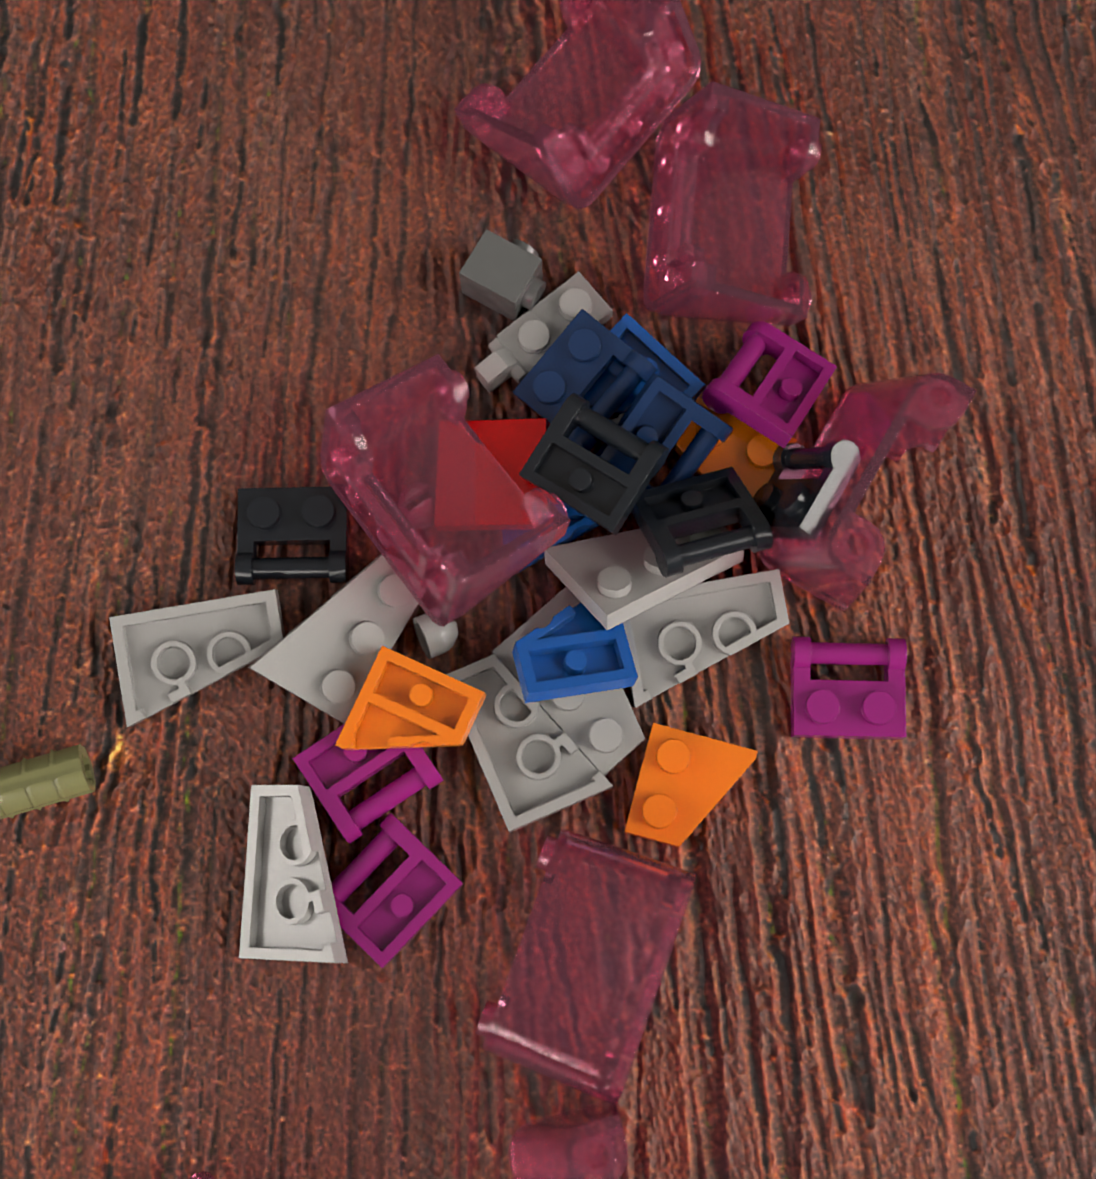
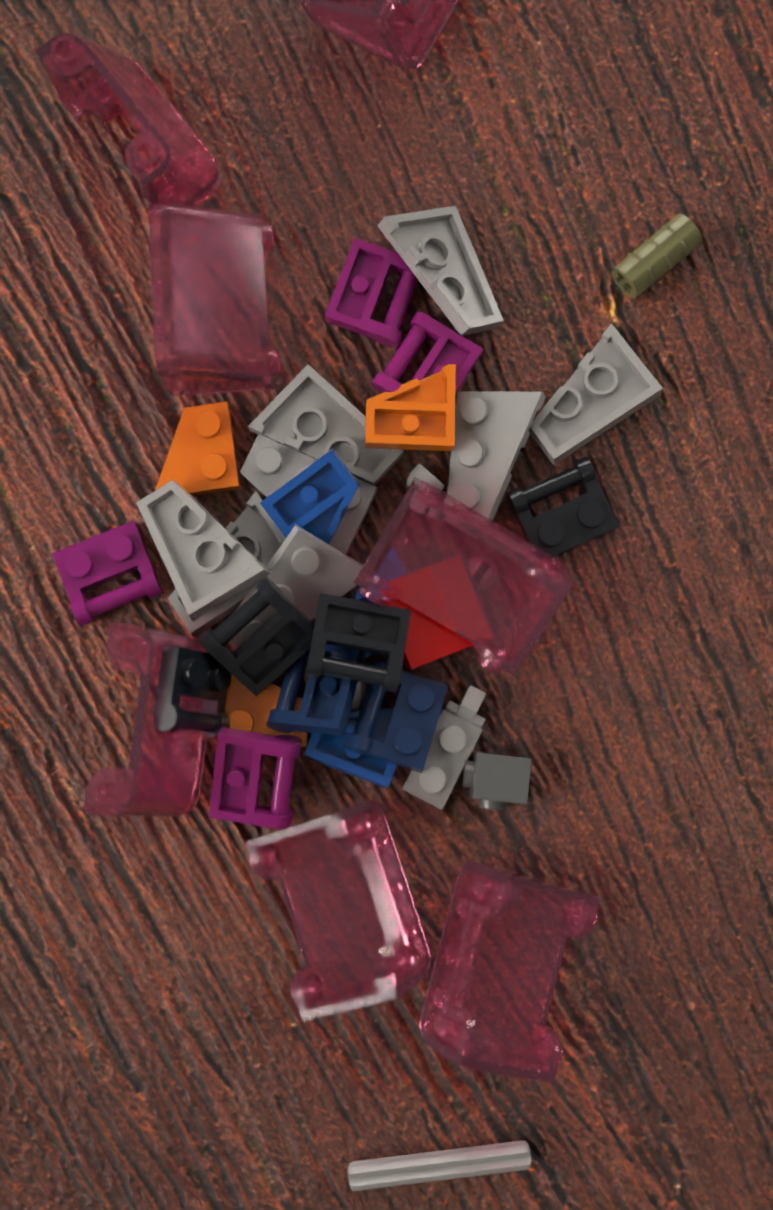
camera: 155 degrees right, 5 degrees up
(733, 656) = (197, 550): none -> light grey wing

